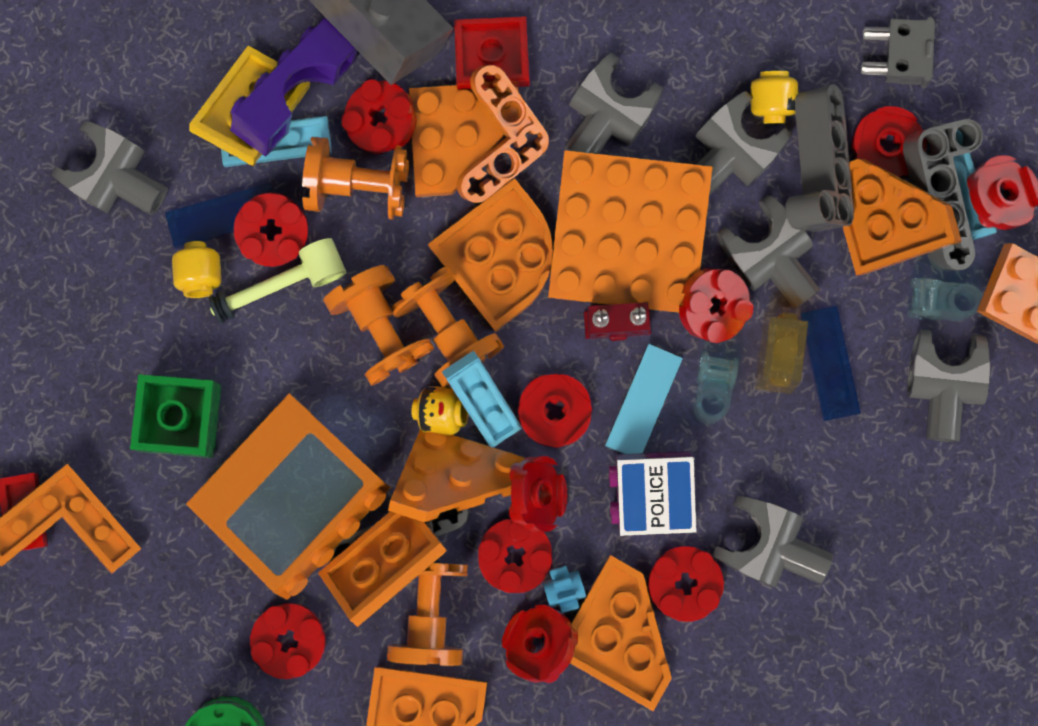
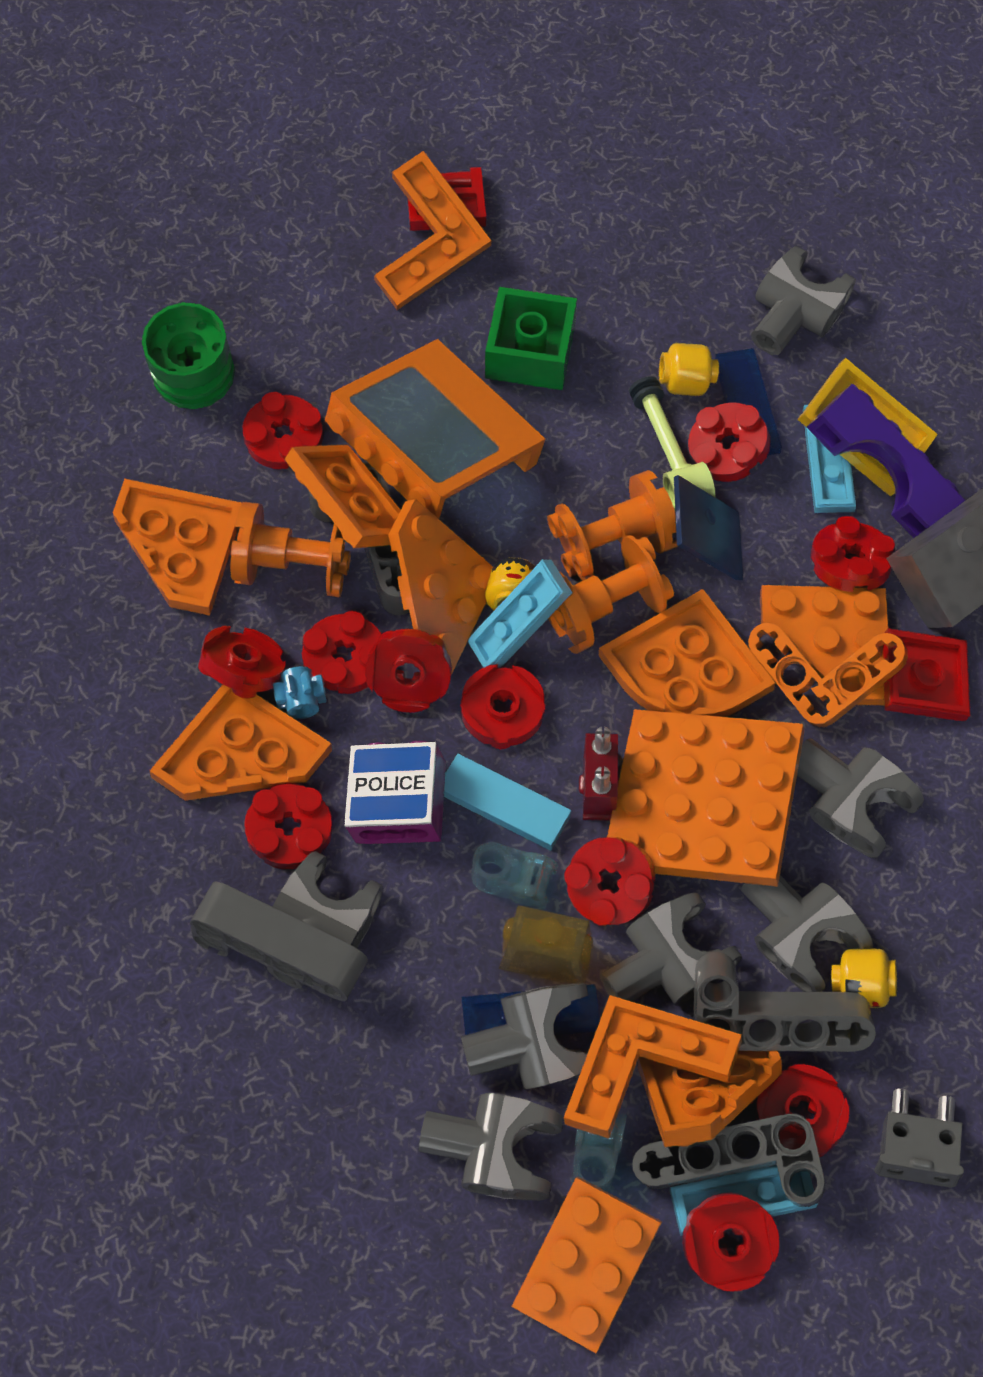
camera: 90 degrees right, 20 degrees down
(341, 177) = (785, 486): orange piece -> none
(371, 242) = (708, 528): none -> dark blue piece
(811, 576) = (269, 936): none -> dark grey beam
(854, 272) = (643, 1031): none -> orange plate
(860, 357) = (528, 1038): none -> dark grey connector

